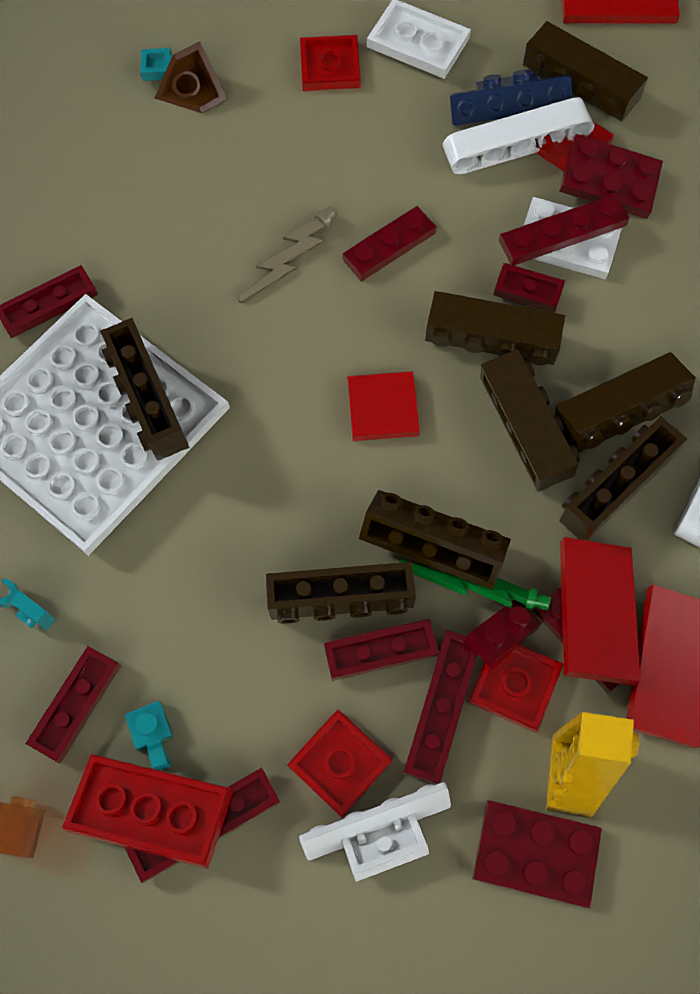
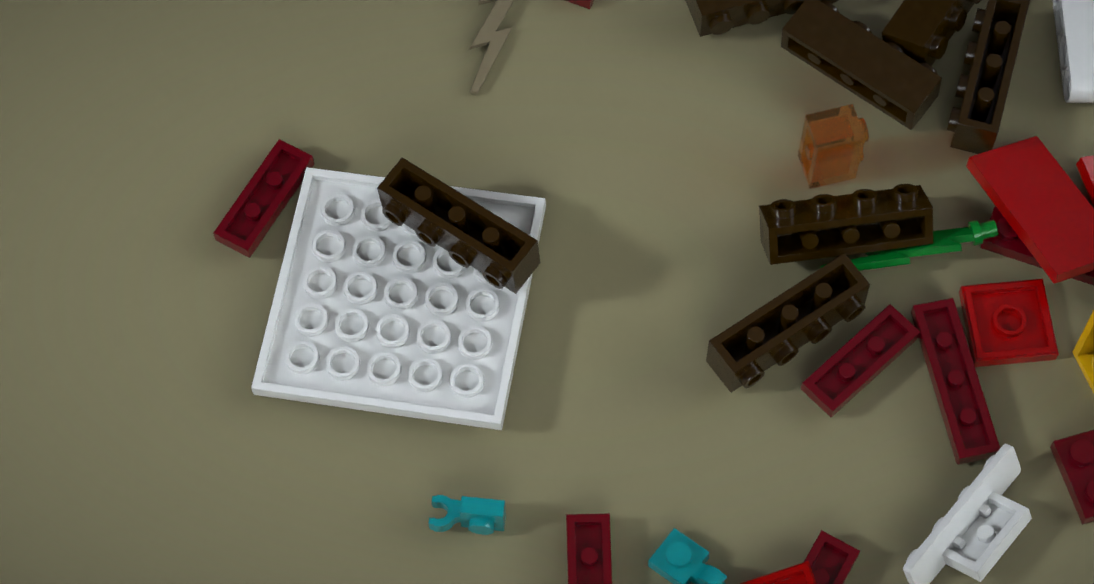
camera: 30 degrees left, 5 degrees down
(340, 763) = (890, 489): red tile -> none
(383, 406) = (701, 124): red tile -> none
(462, 472) = (832, 145): none -> clear orange brick
(503, 632) = (968, 279): dark red plate -> none

